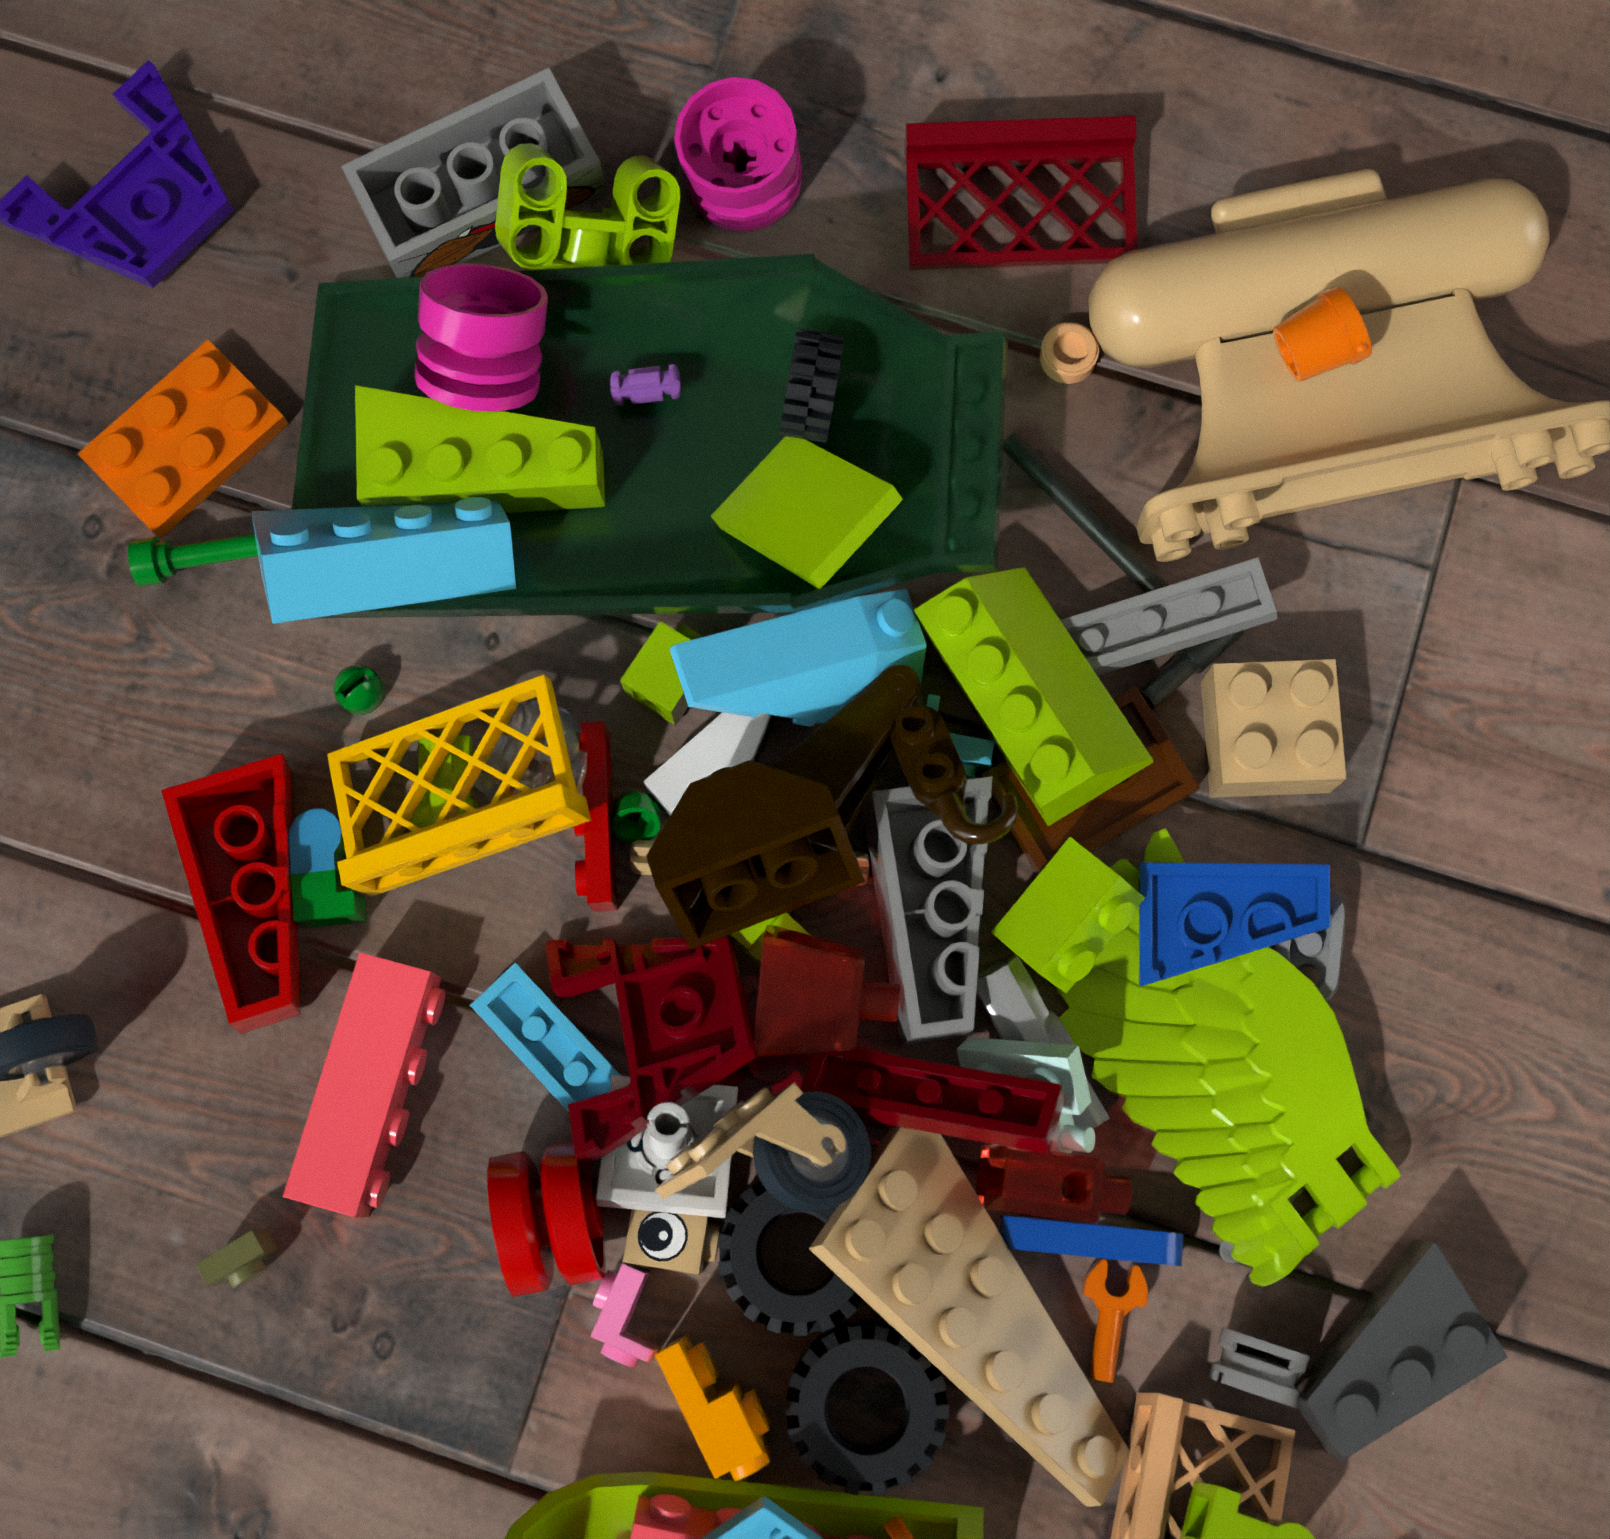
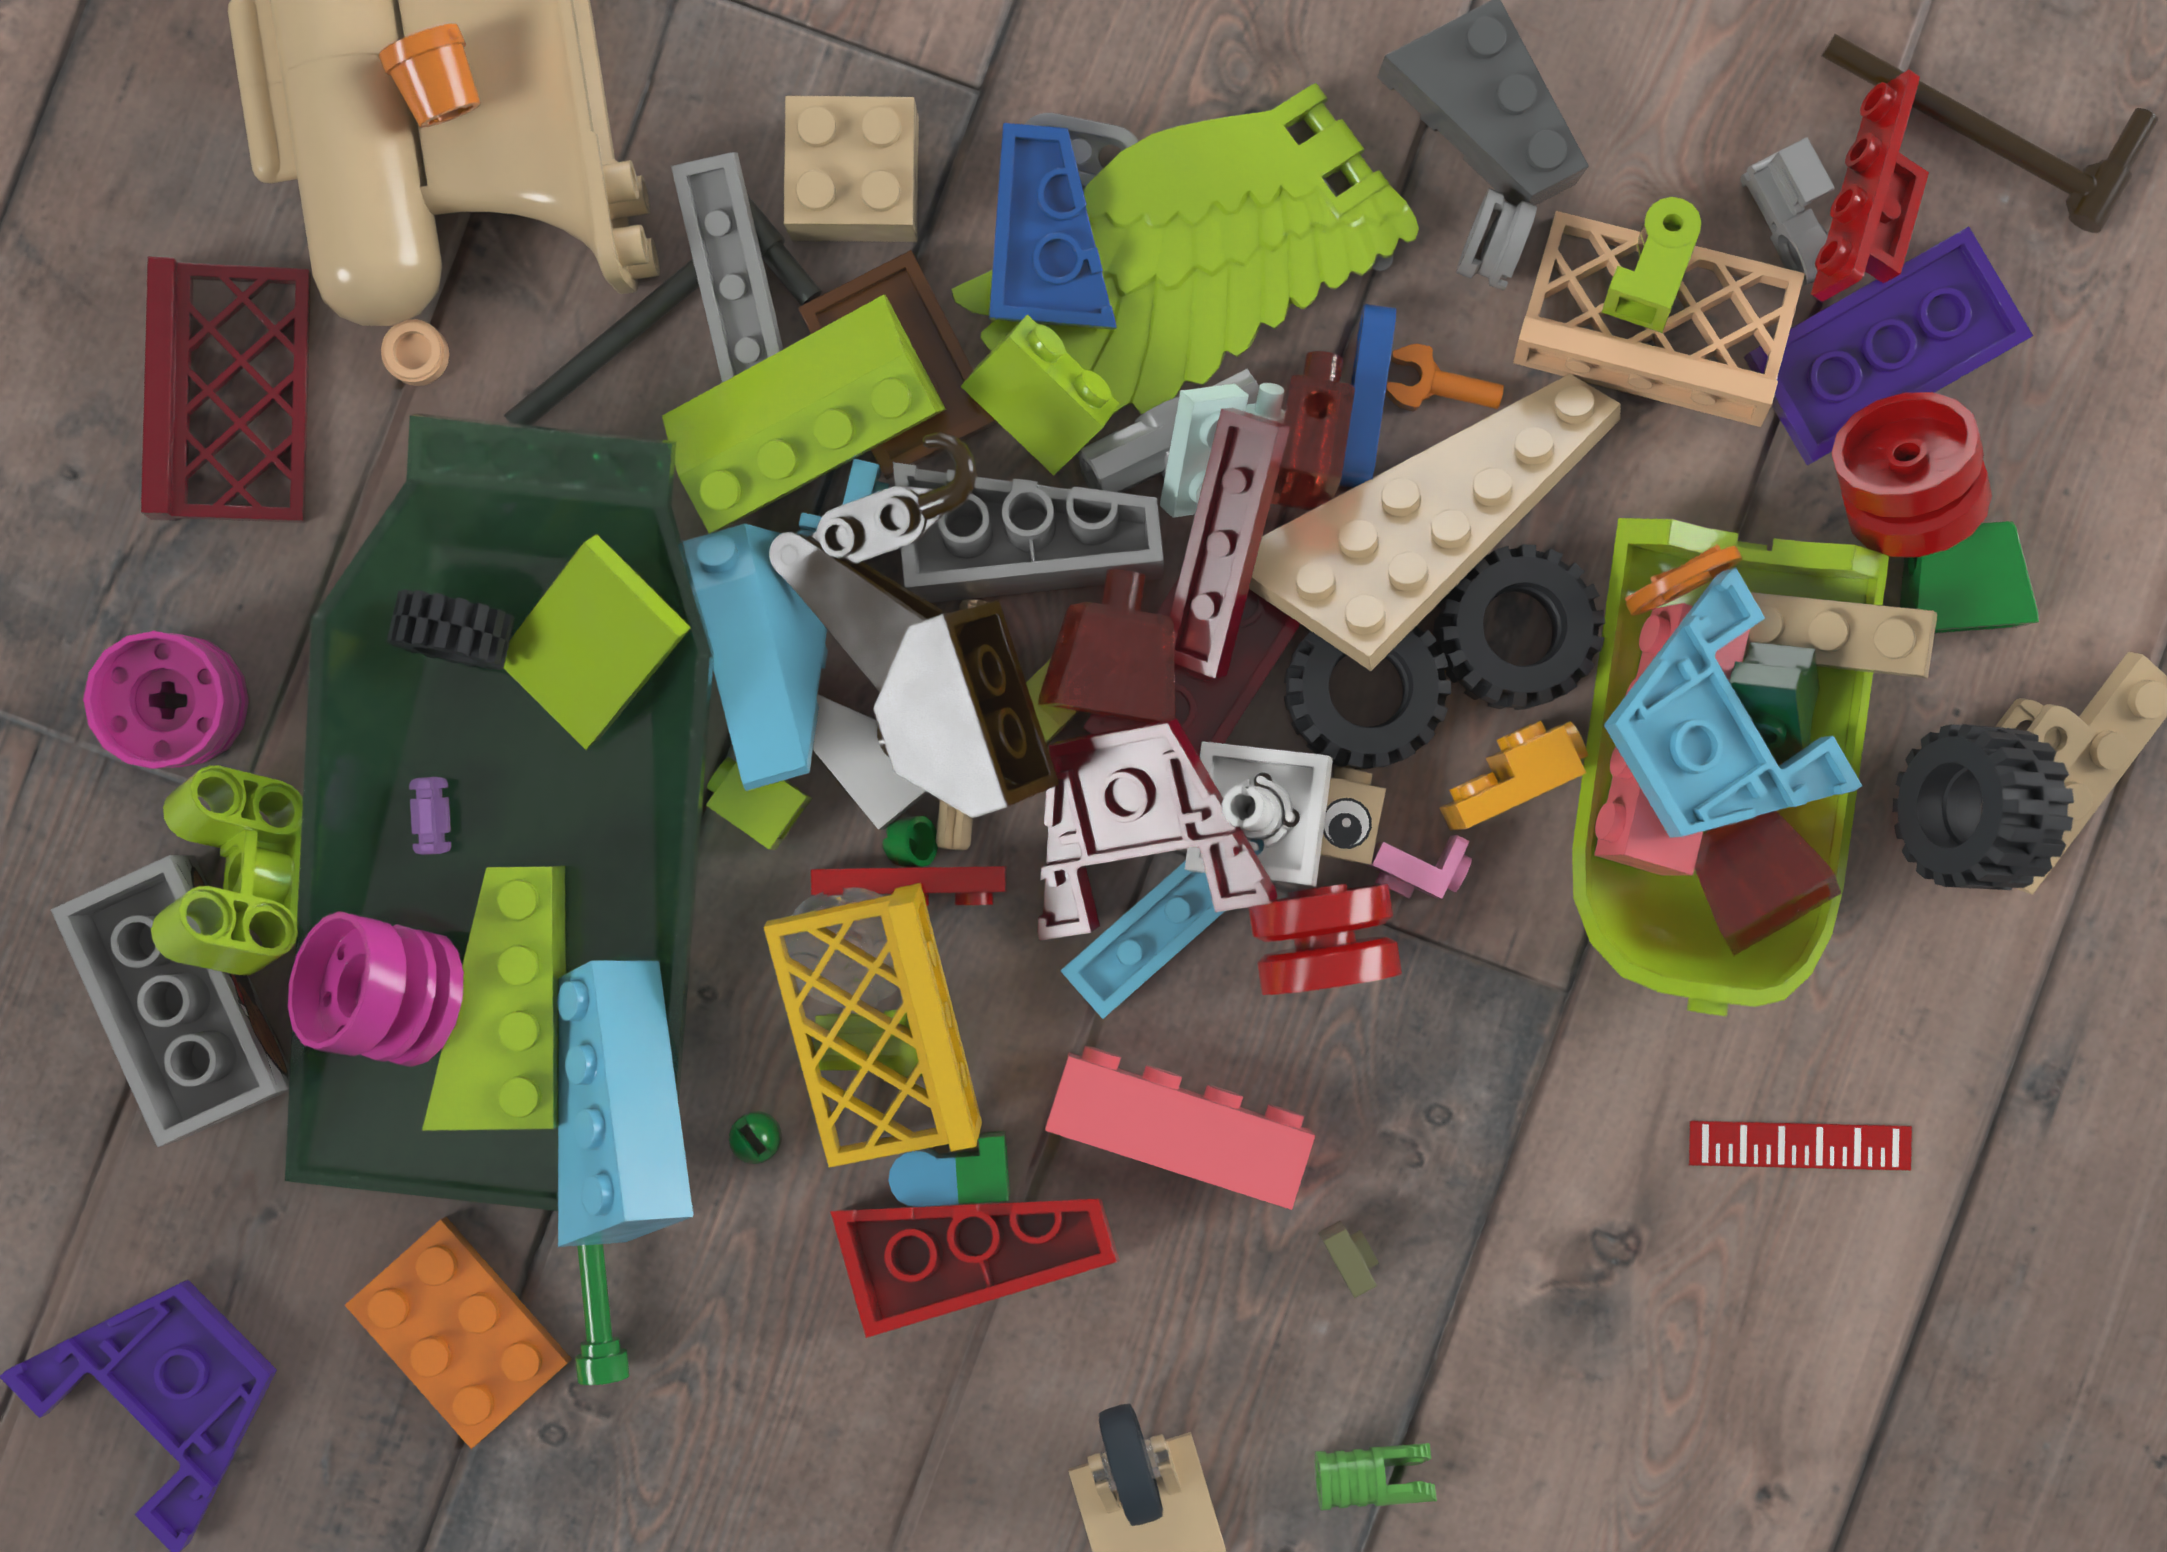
camera: 90 degrees left, 10 degrees up
(802, 1143) = (1268, 673): plate -> none

